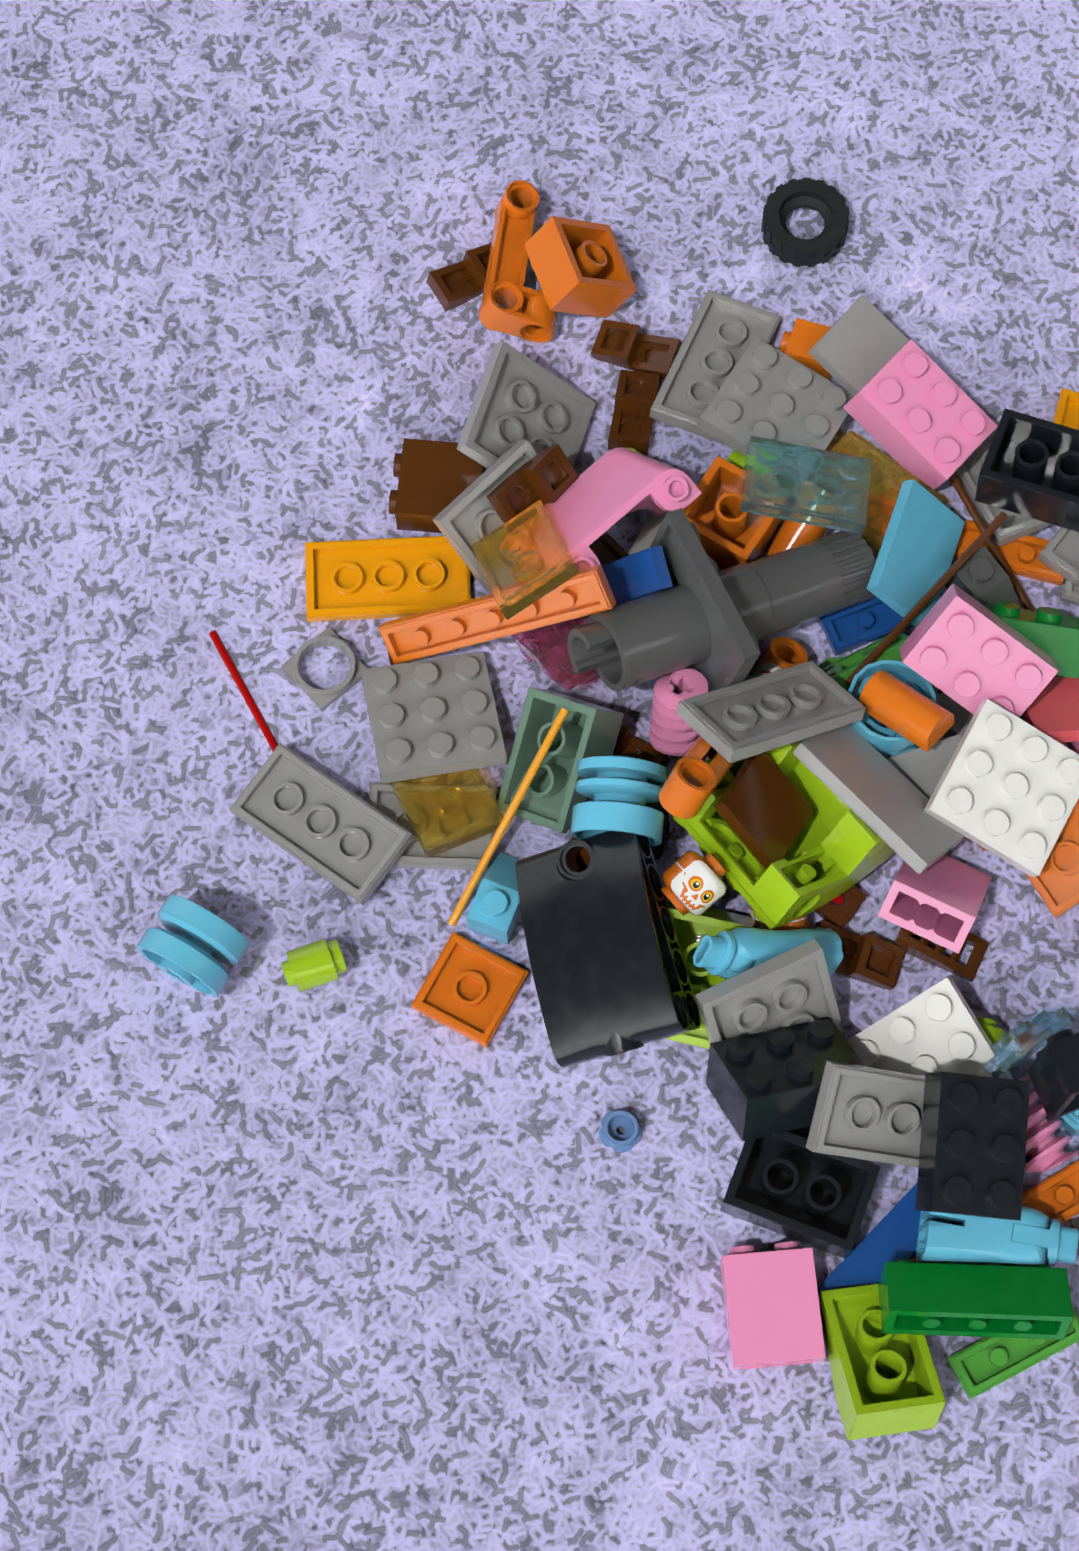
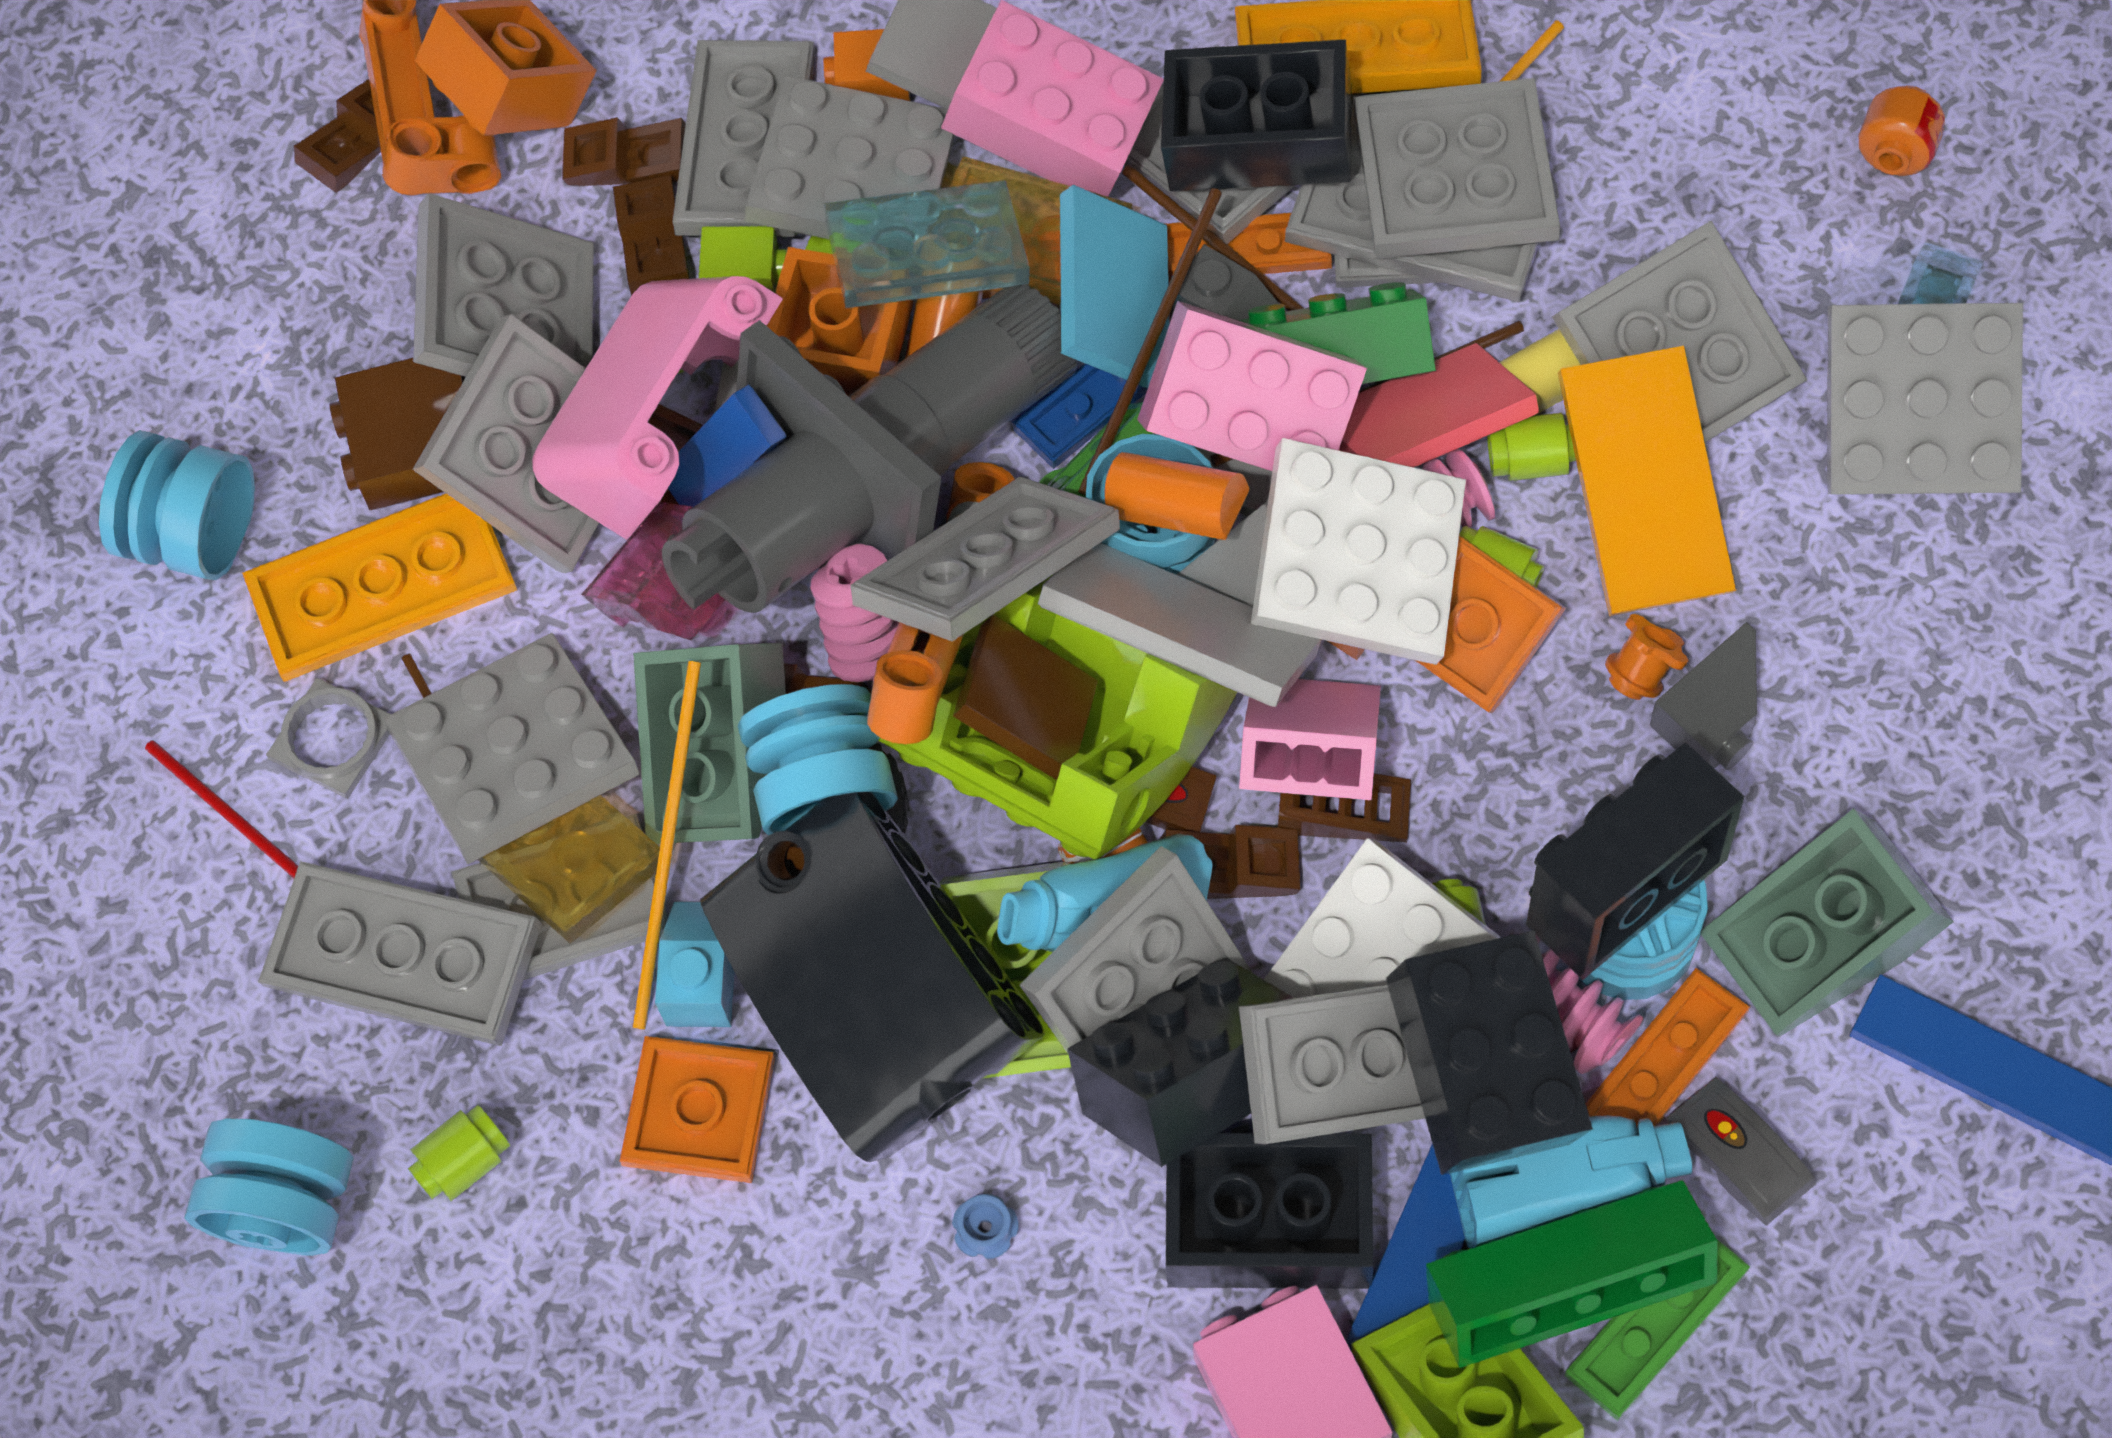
camera: 15 degrees left, 5 degrees down
(279, 486) = (176, 505): none -> medium azure wheel
(482, 621) = (552, 567): orange tile -> none
(524, 559) = (562, 473): clear yellow tile -> none
(539, 479) = (540, 375): reddish brown slope -> none
(685, 449) = (741, 252): none -> lime brick
(694, 883) = (963, 834): head -> none
(1026, 1040) = (1504, 894): clear light blue plate -> none

